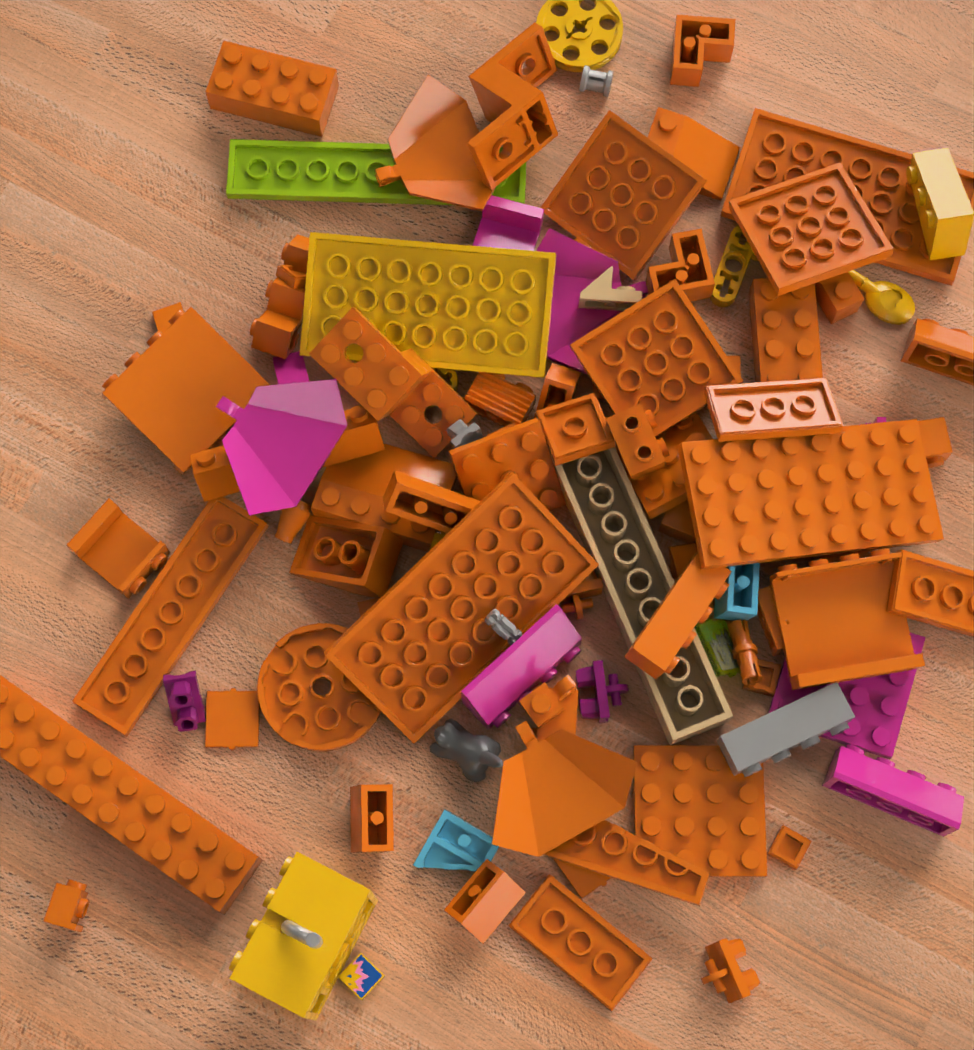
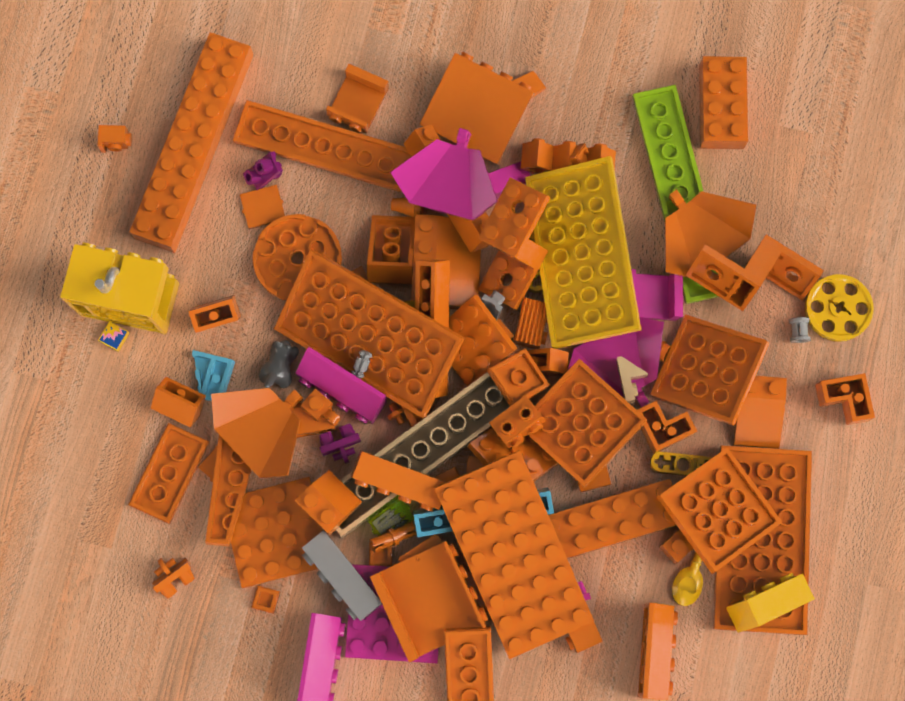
camera: 75 degrees right, 5 degrees up
(685, 718) = (328, 502): none -> orange slope
(772, 409) = (566, 512): orange tile -> none

